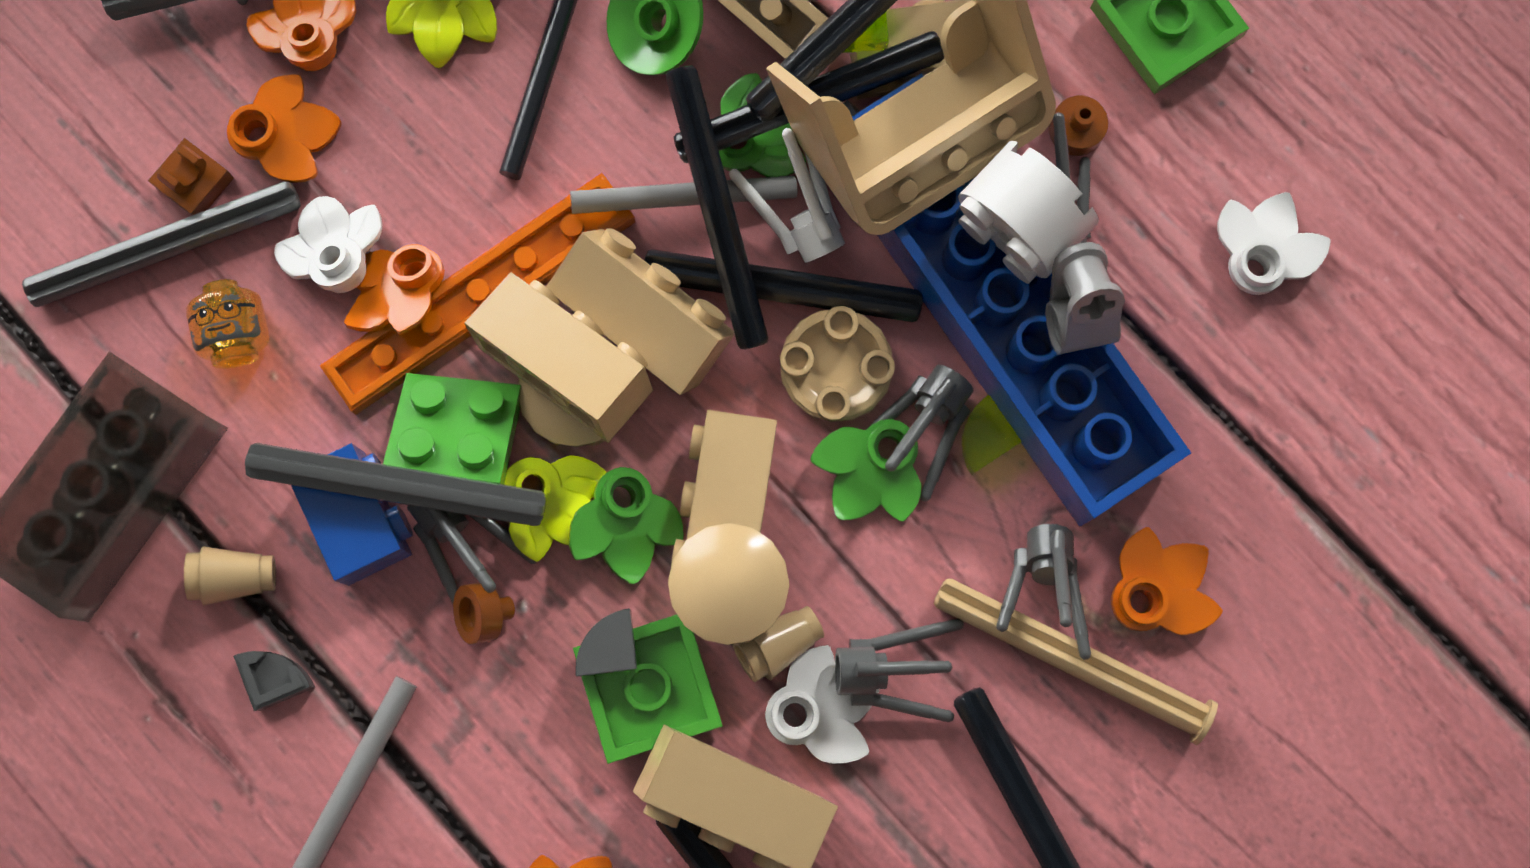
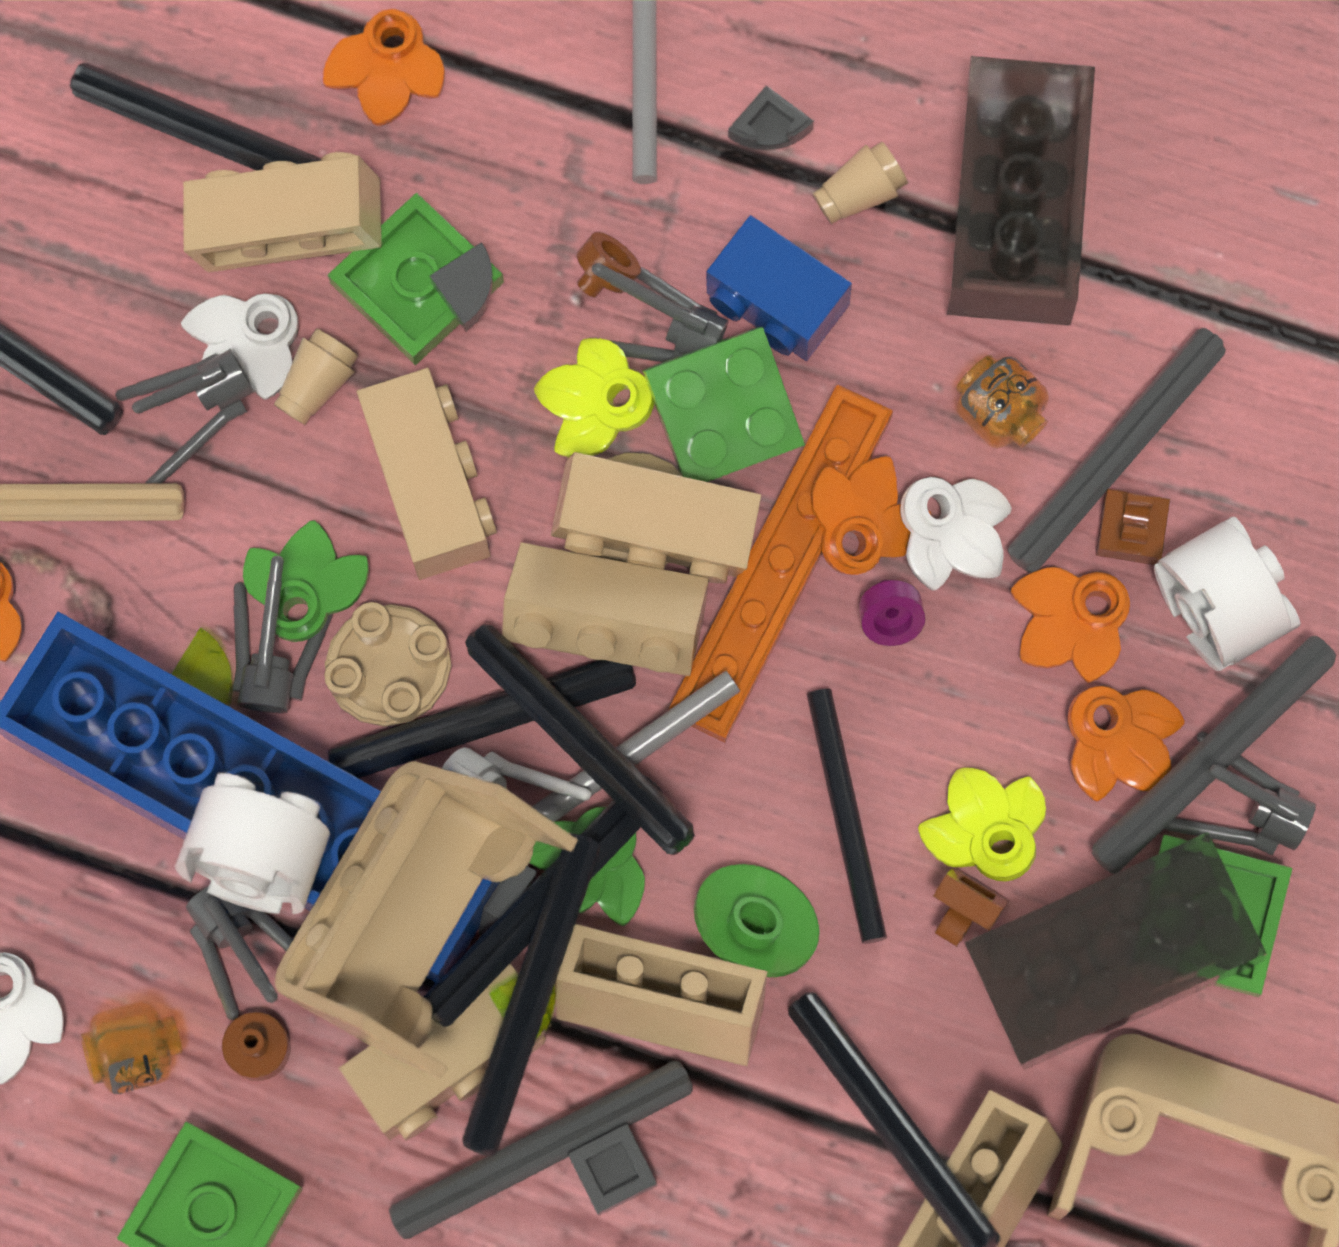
camera: 160 degrees right, 5 degrees down
(149, 67) = (1226, 594): none -> white brick
(395, 484) = (739, 318): dark grey axle -> none
(416, 202) = (892, 613): none -> magenta tile
(624, 534) = (512, 406): bright green plate -> none
(728, 584) = (379, 384): tan dish -> none
(1051, 562) = (81, 576): dark grey plant -> none
(1083, 302) = (155, 788): light grey piece -> none
(1178, 163) = (130, 1047): none -> clear yellow head

